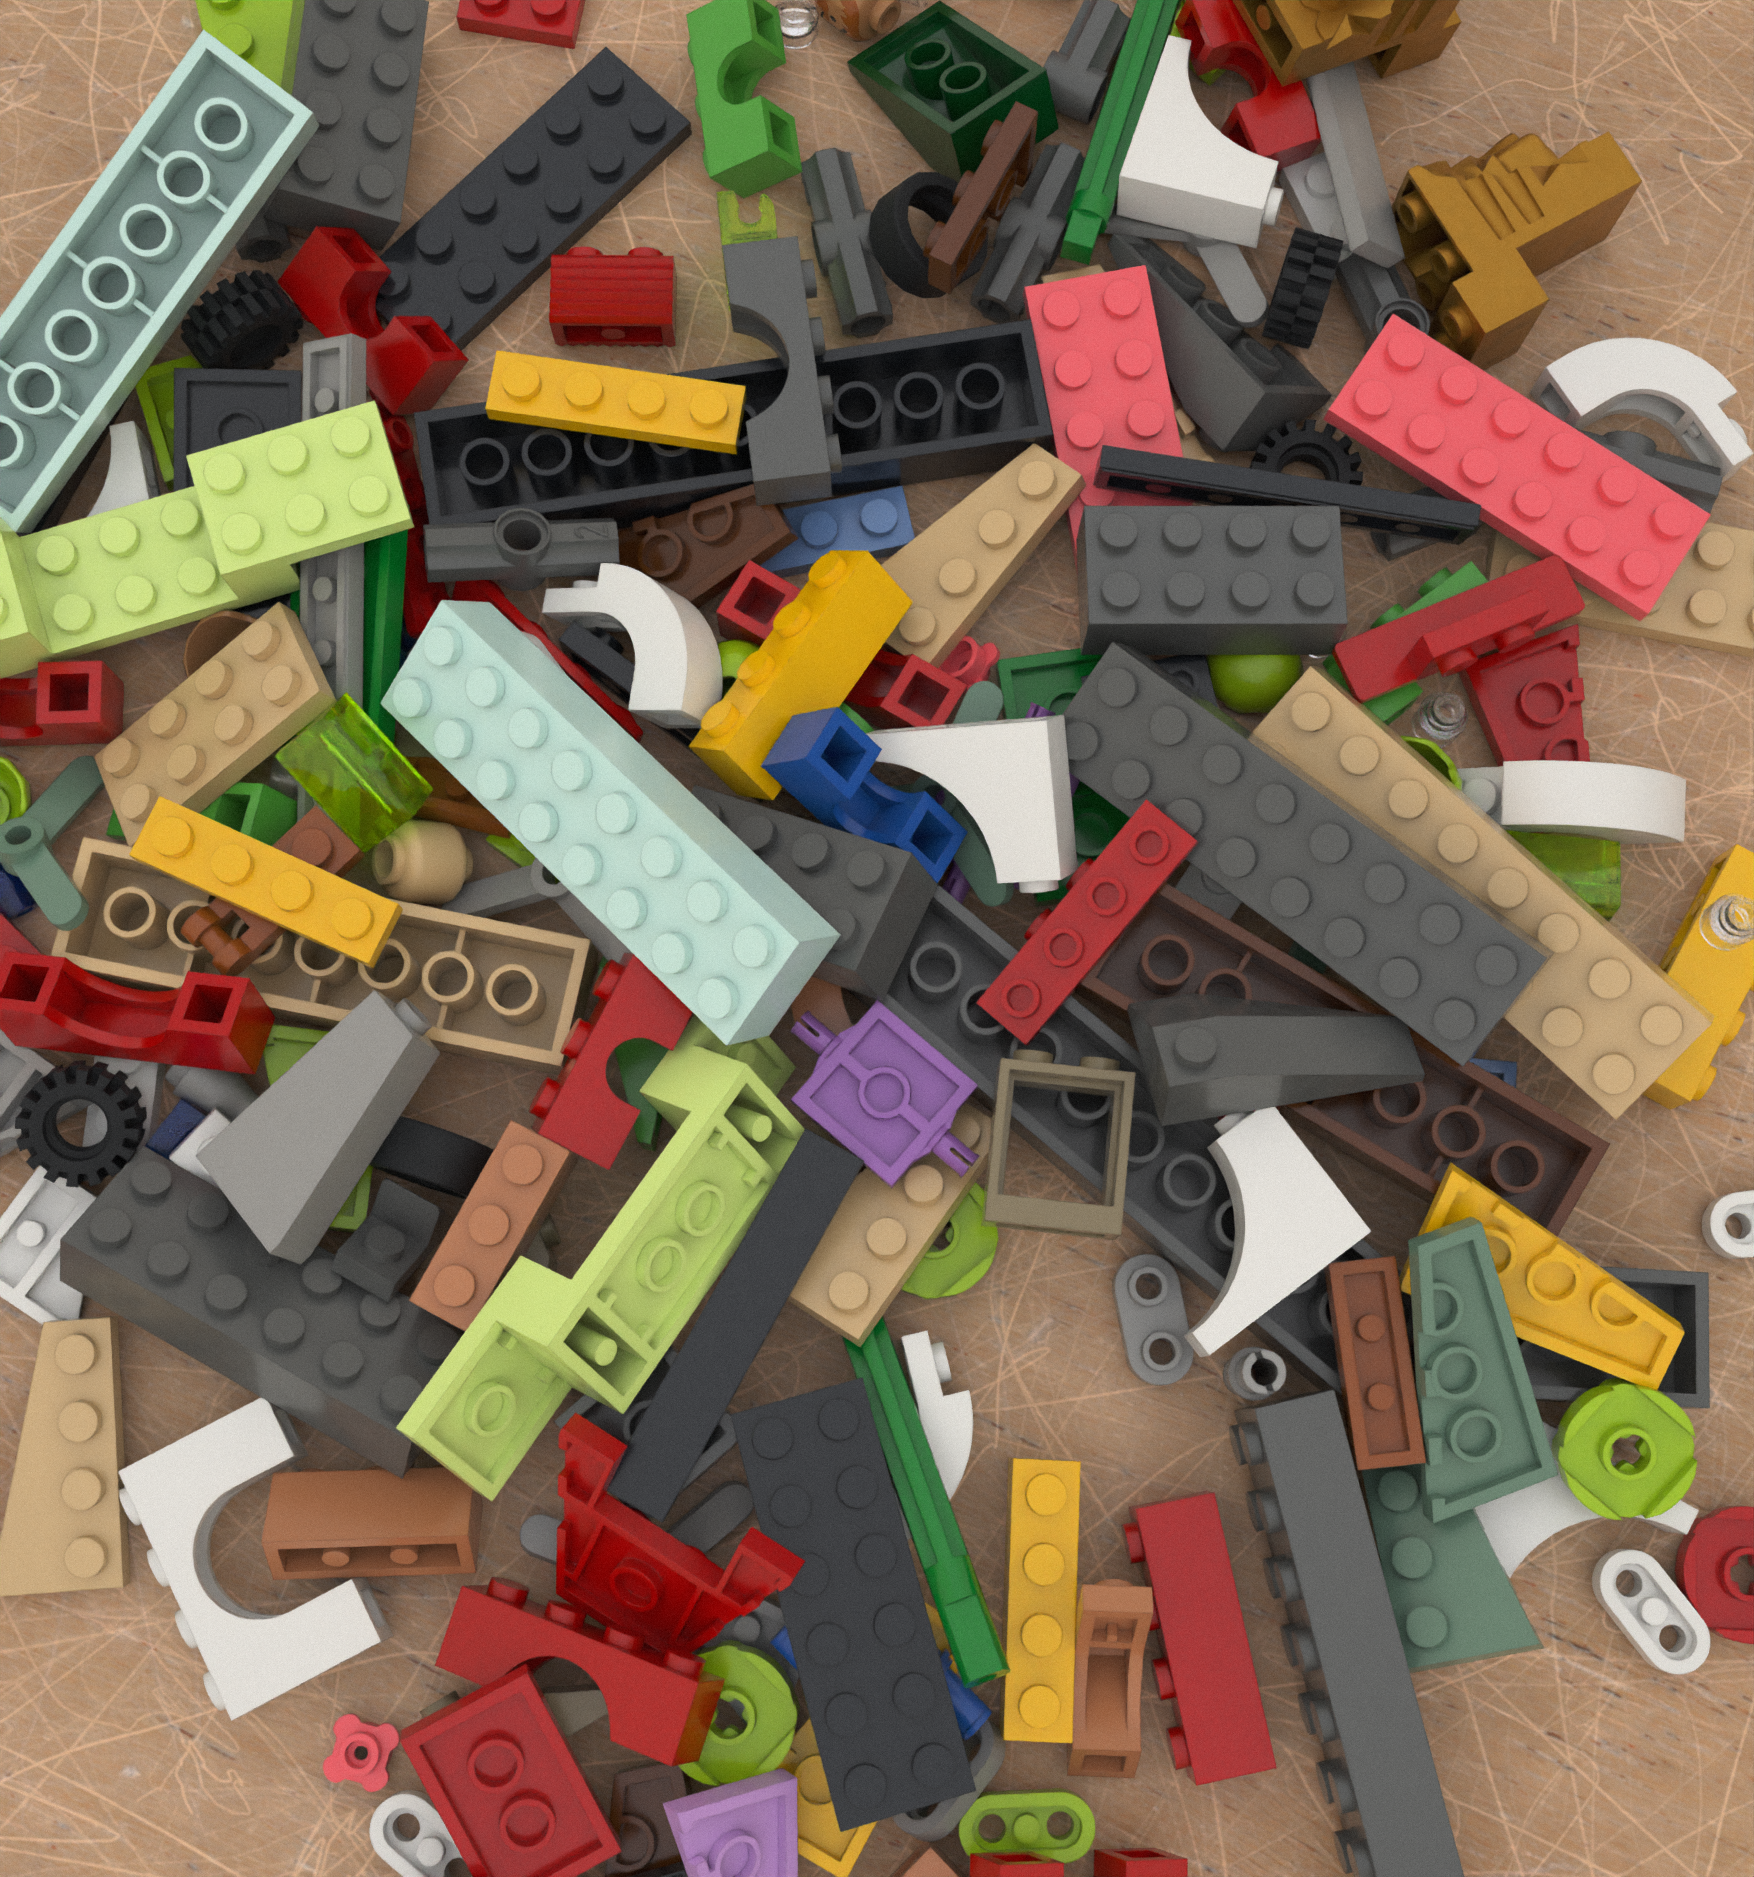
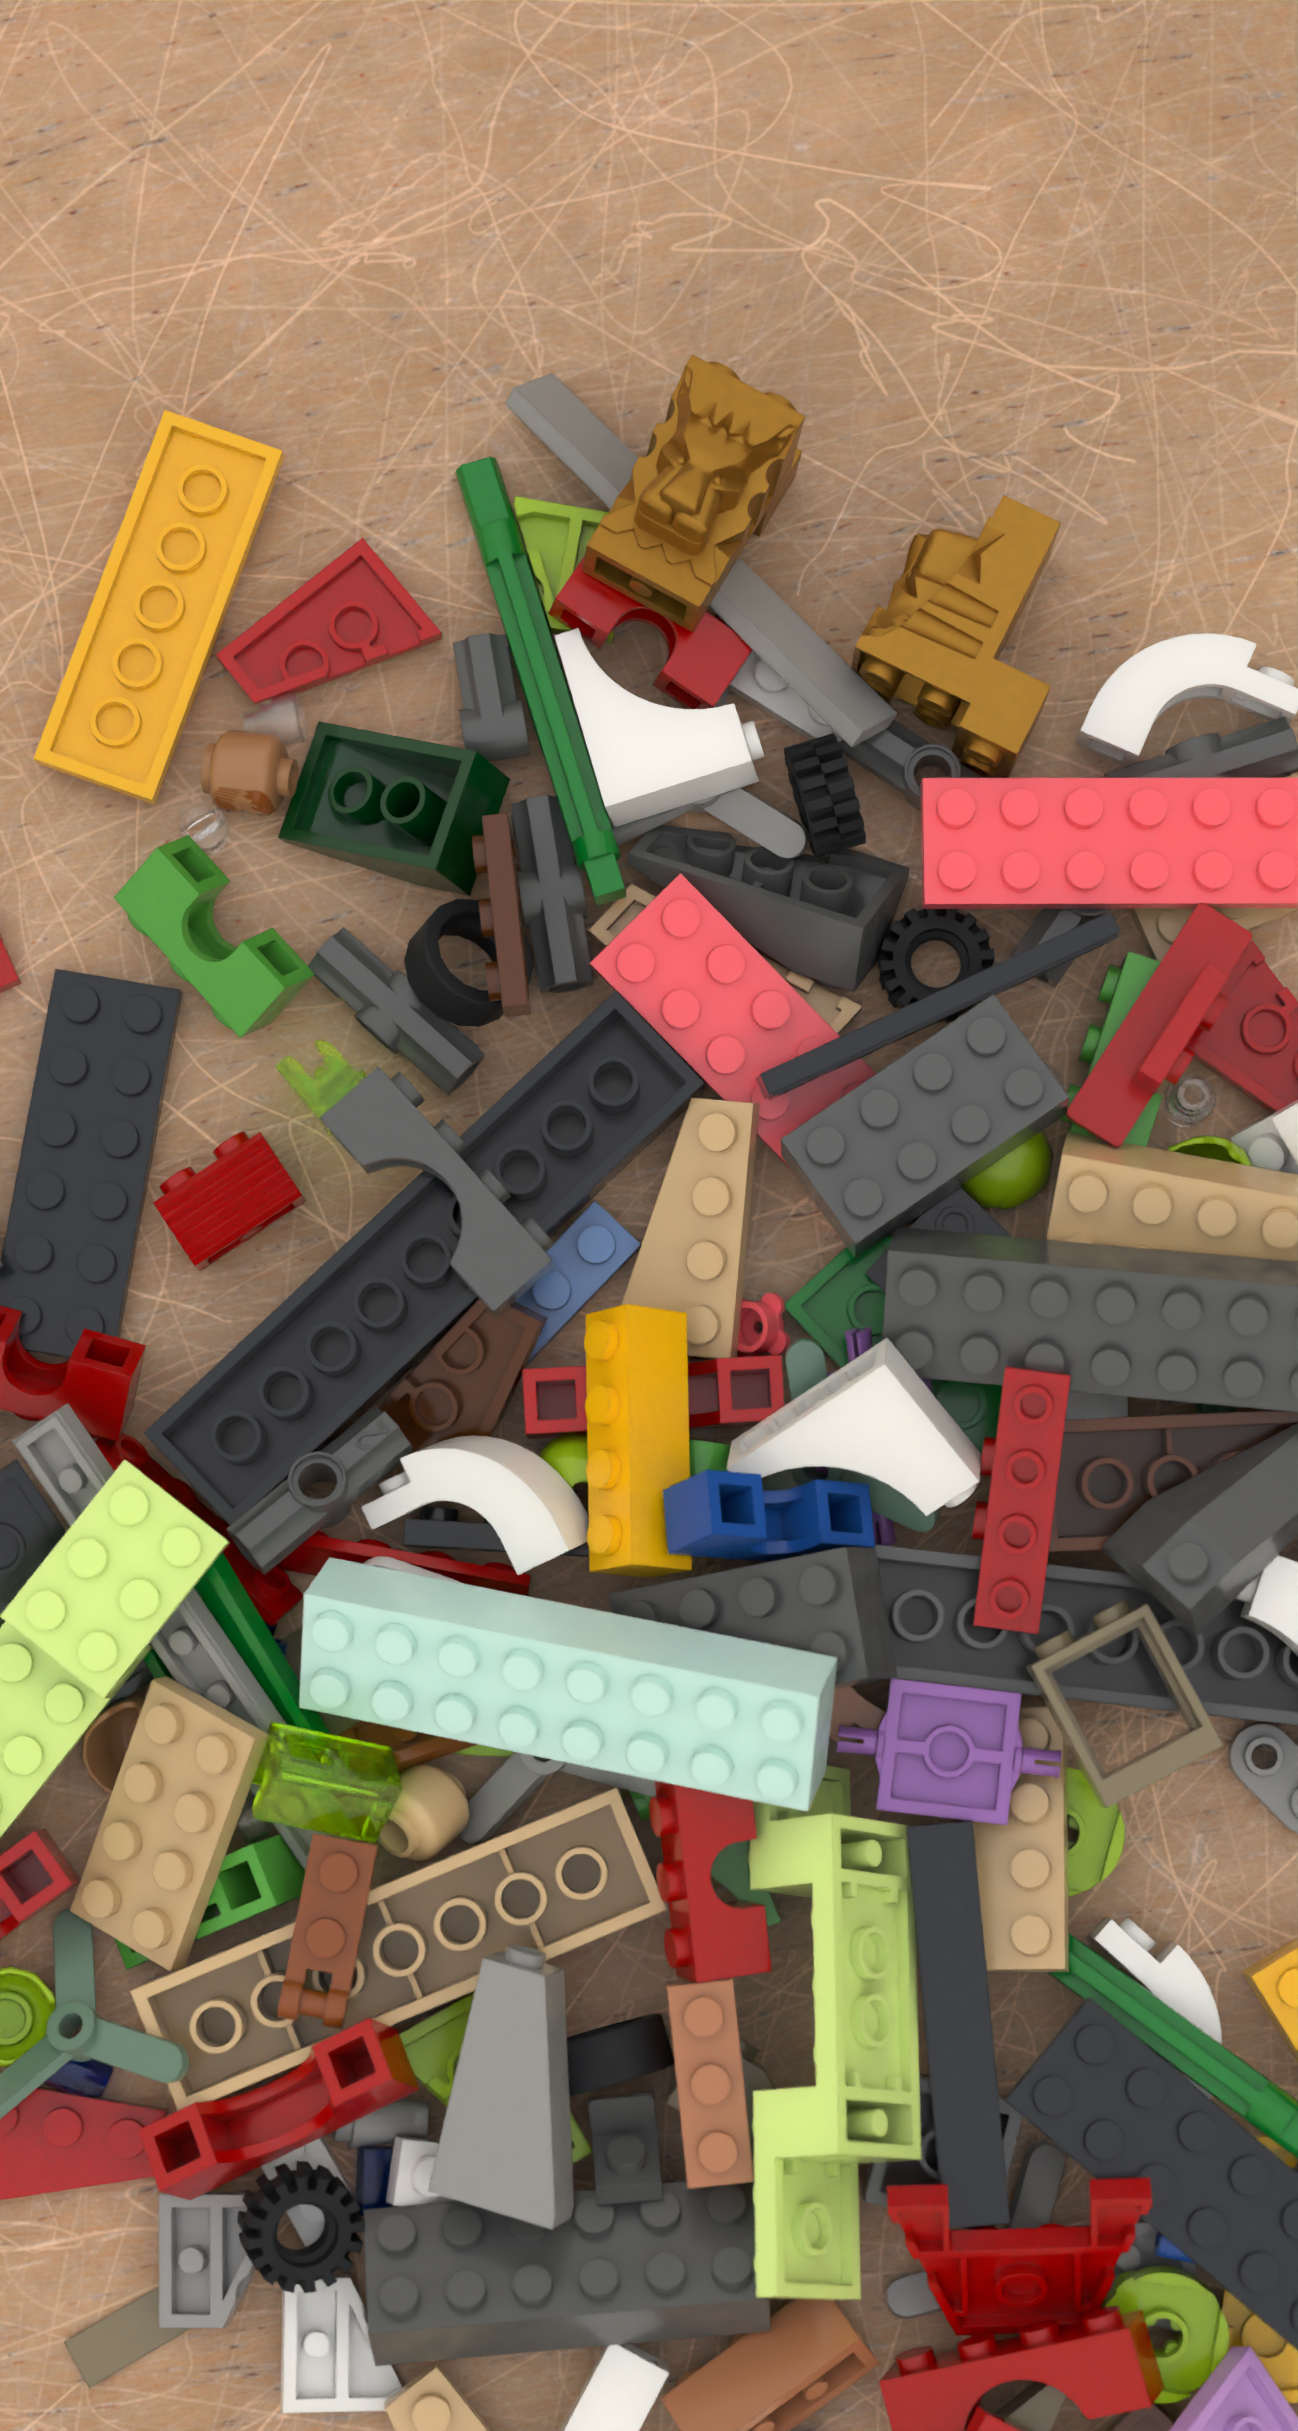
camera: 30 degrees left, 5 degrees up
(266, 882) = (325, 1929): yellow plate -> none
(616, 402) = (314, 1308): yellow plate -> none

